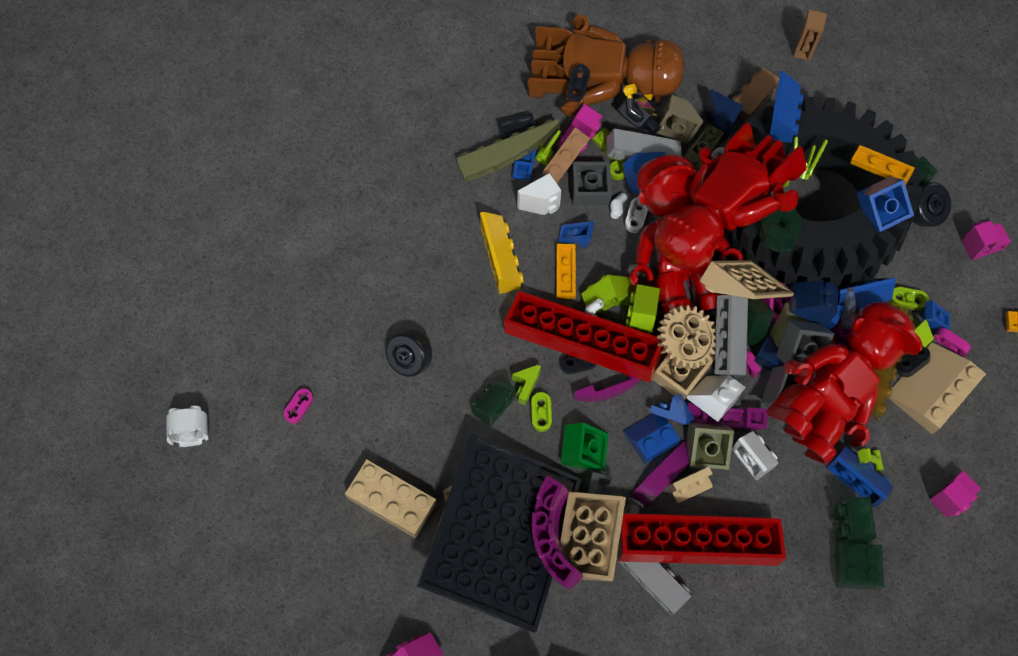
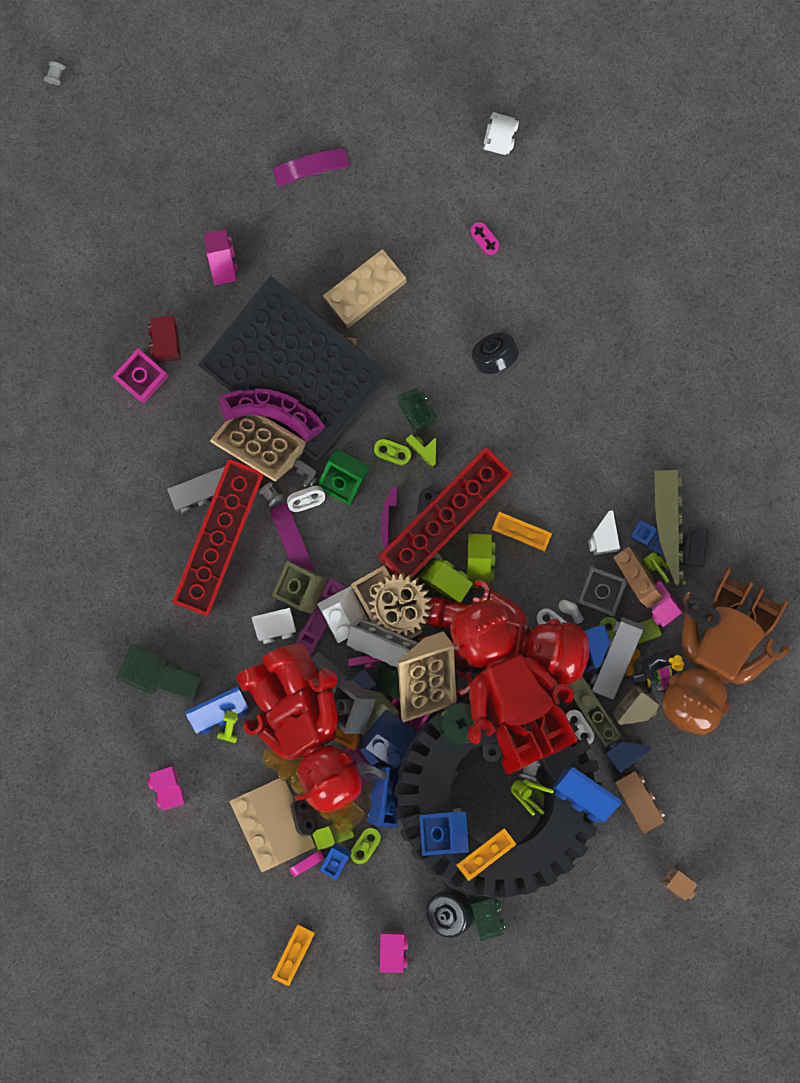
camera: 115 degrees right, 15 degrees up
(281, 606) = (310, 166): none -> magenta slope
(500, 253) = (562, 474): yellow slope -> none
(576, 233) = (555, 555): blue slope -> none
(594, 306) = (467, 534): white arm -> none
(624, 478) = (306, 499): none -> white plate
(652, 437) = (330, 540): blue slope -> none
(676, 411) = (343, 568): blue slope -> none
(691, 485) = (271, 556): tan bracket -> none

